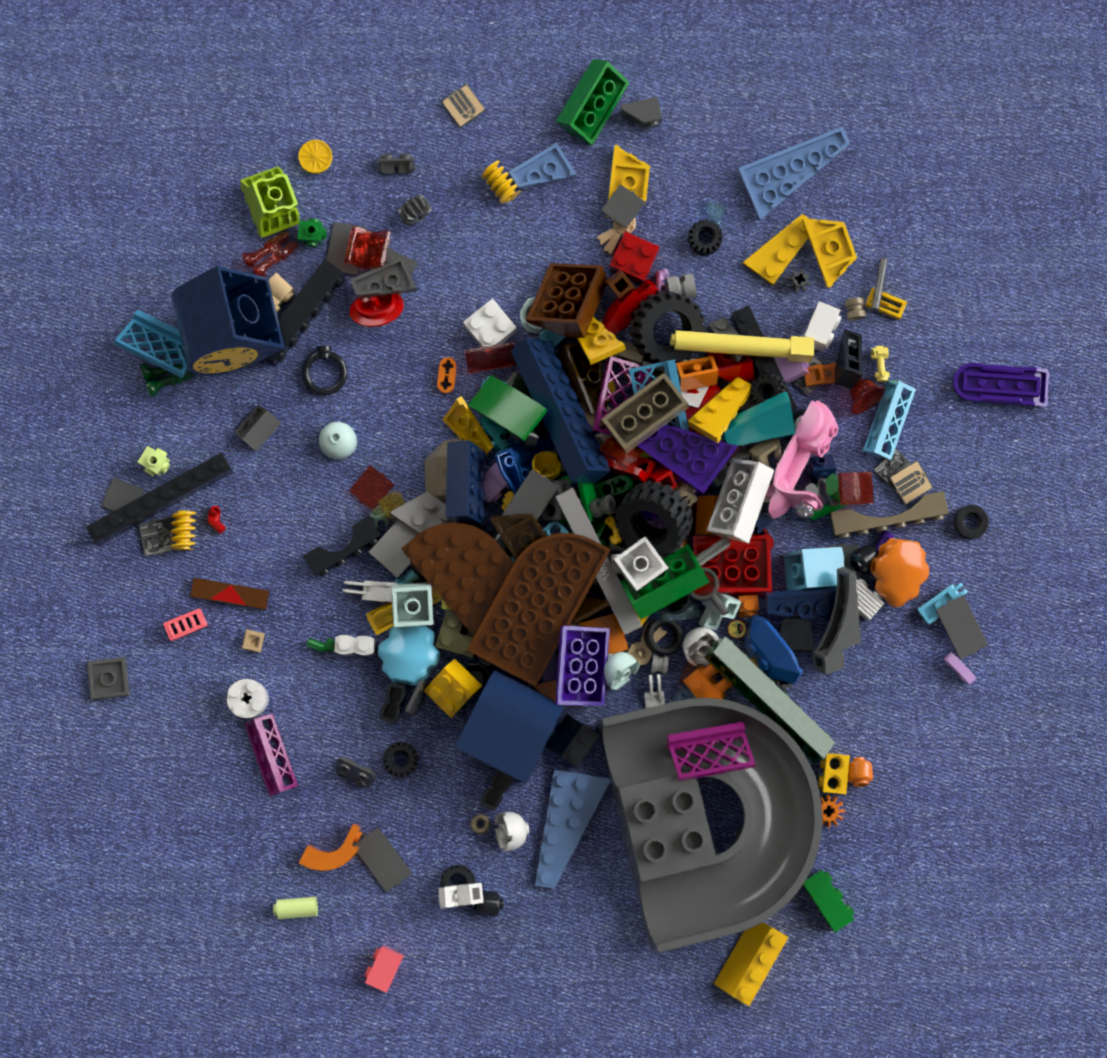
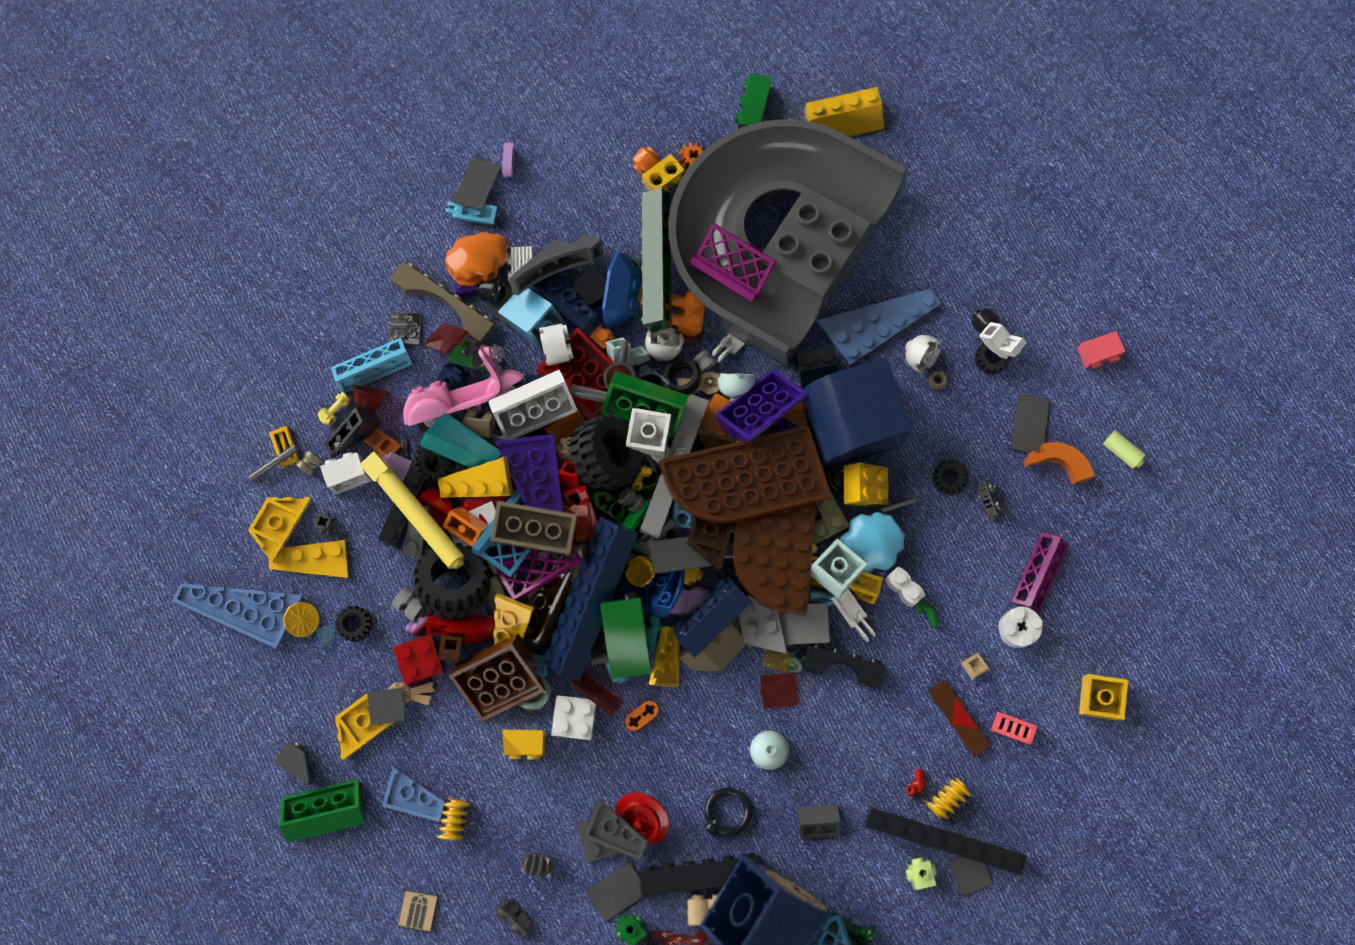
camera: 135 degrees left, 5 degrees down
(108, 678) = (1108, 747): dark grey tile -> none
(143, 707) = (1103, 697): none -> yellow brick
(156, 536) = (972, 816): piece -> none
(367, 248) = (601, 871): clear red bracket -> none
(391, 708) = (913, 520): black brick -> none
(493, 795) = (911, 387): black brick -> none
(504, 276) = (524, 742): none -> yellow slope
(736, 629) = (627, 331): tile -> none
(742, 203) = (301, 619): none -> yellow wheel
(771, 560) = (555, 344): none -> white brick
(910, 482) = (404, 310): piece -> none
(982, 519) = (396, 255): black tyre -> none
(1002, 384) = (271, 311): dark purple piece -> none

